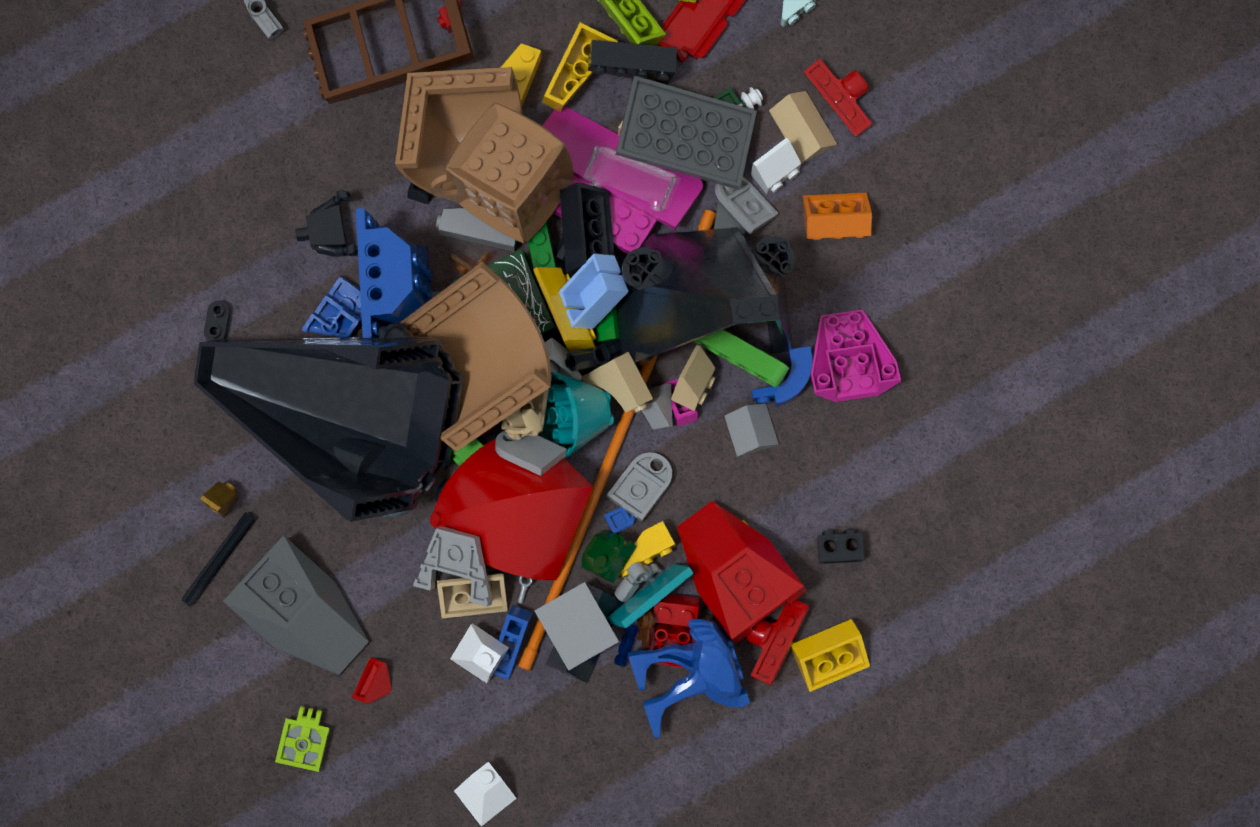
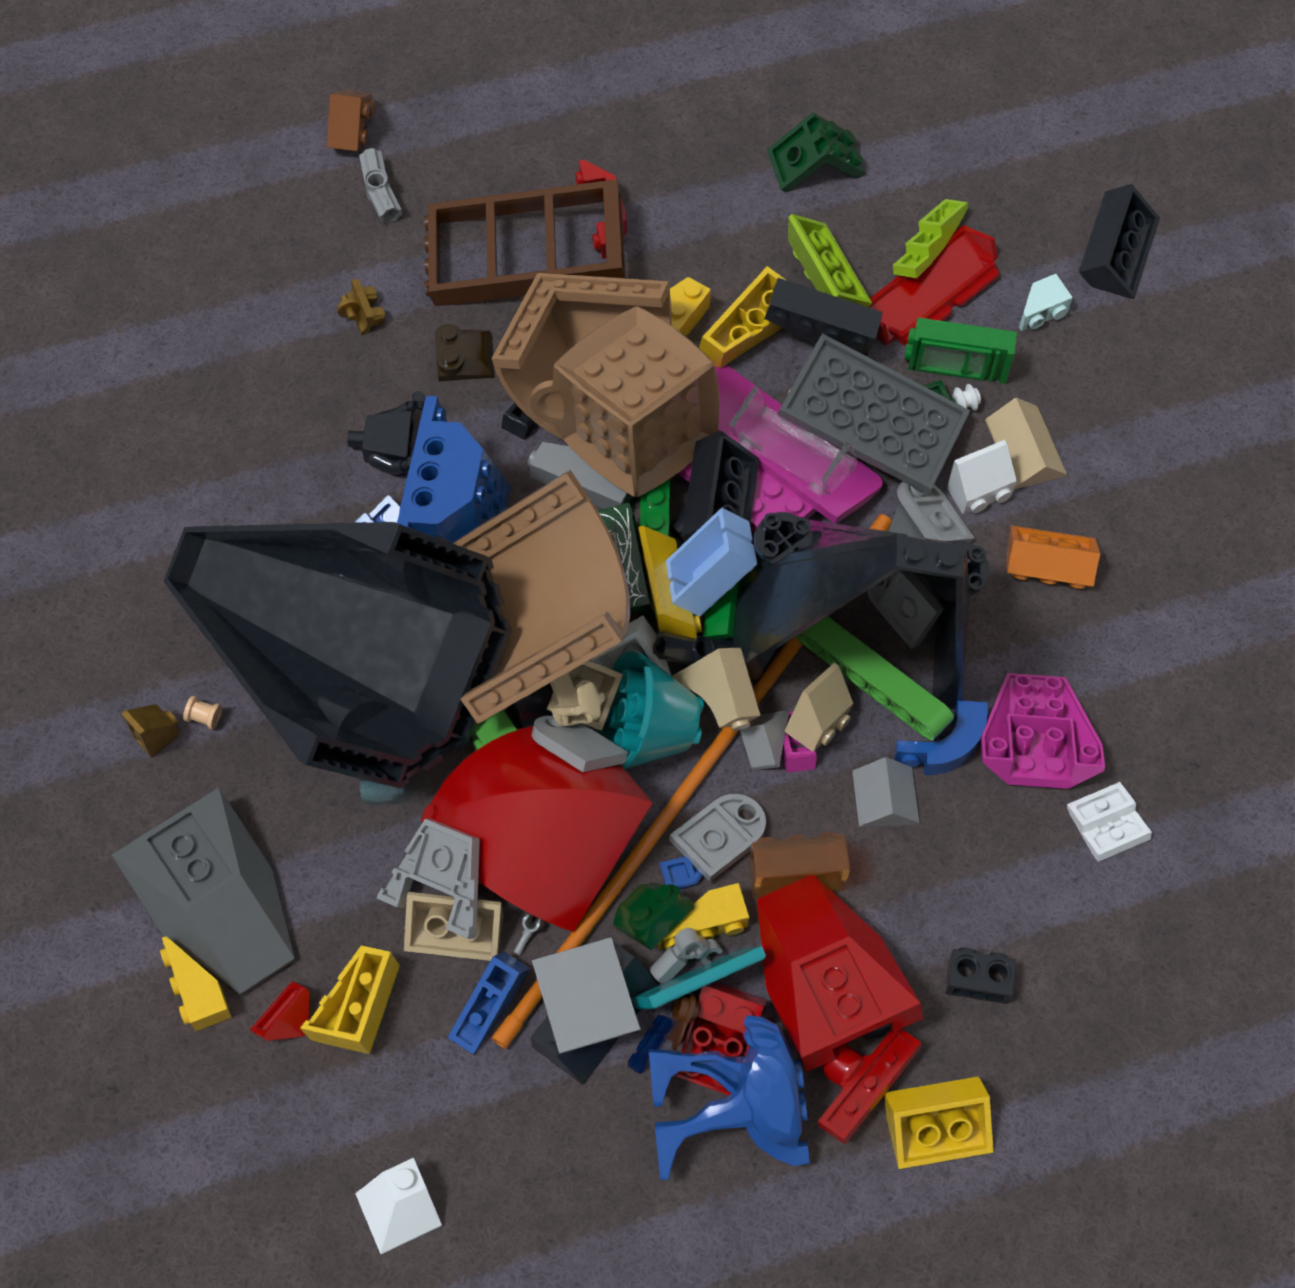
camera: 15 degrees right, 15 degrees down
(216, 321) = (220, 516): black plate -> none
(218, 559) = (125, 807): black axle -> none
(251, 477) = (202, 712): none -> light nougat bush
(272, 122) = (357, 307): none -> pearl gold hips
(303, 741) = (164, 1073): lime piece -> none
(311, 680) = (199, 990): none -> yellow slope
(363, 142) = (463, 353): none -> dark brown slope
(421, 664) = (356, 1003): none -> yellow wedge
(479, 653) = (442, 1007): white slope -> none
(700, 497) = (785, 861): none -> clear orange piece
(740, 61) = (960, 350): none -> green door
(841, 95) = (1083, 417): red plate -> none
(910, 413) = (1109, 821): none -> white slope

